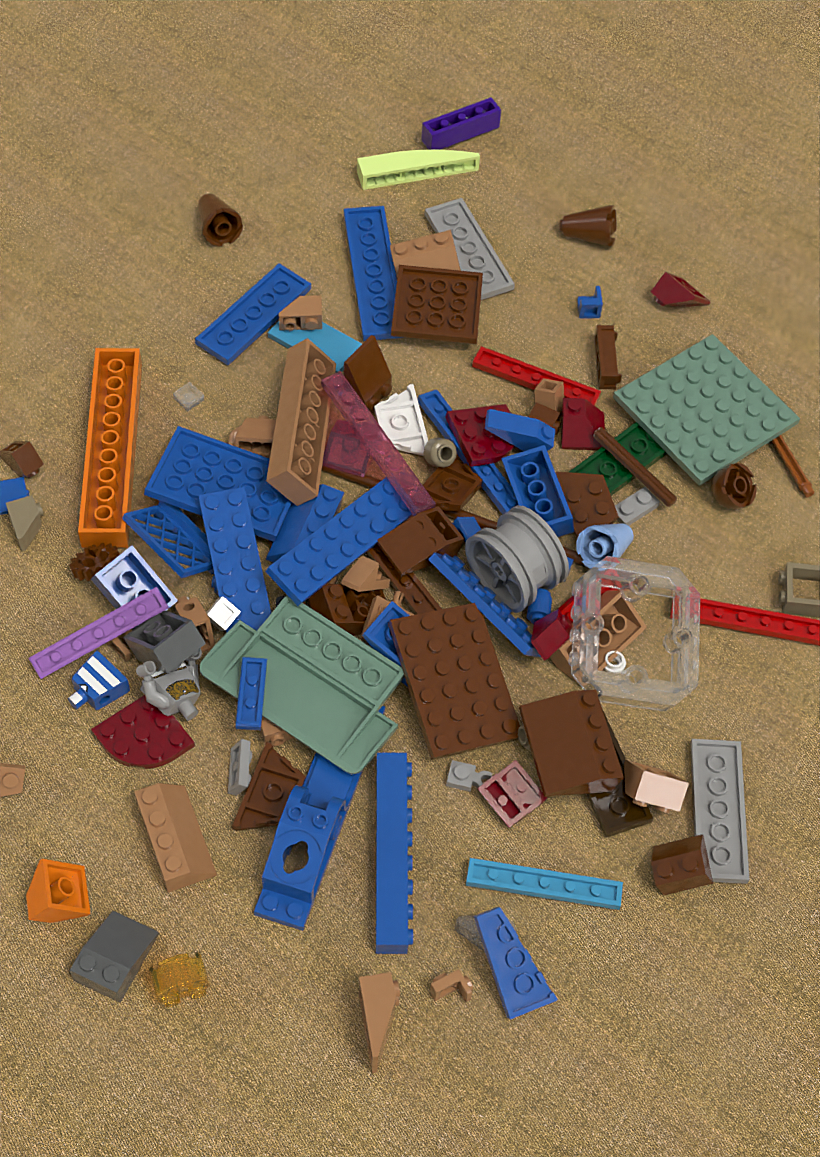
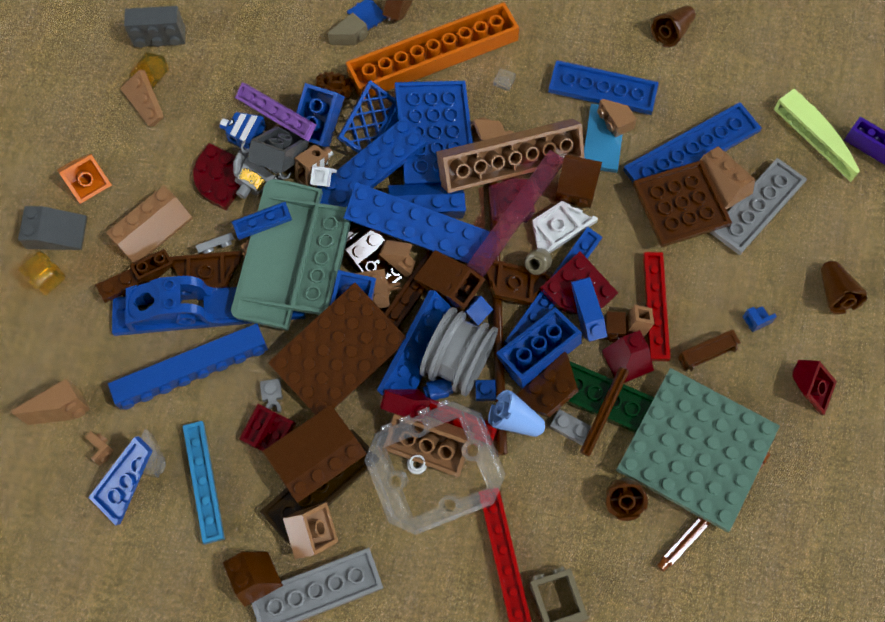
camera: 70 degrees right, 10 degrees up
(239, 872) = (140, 273): none -> reddish brown slope

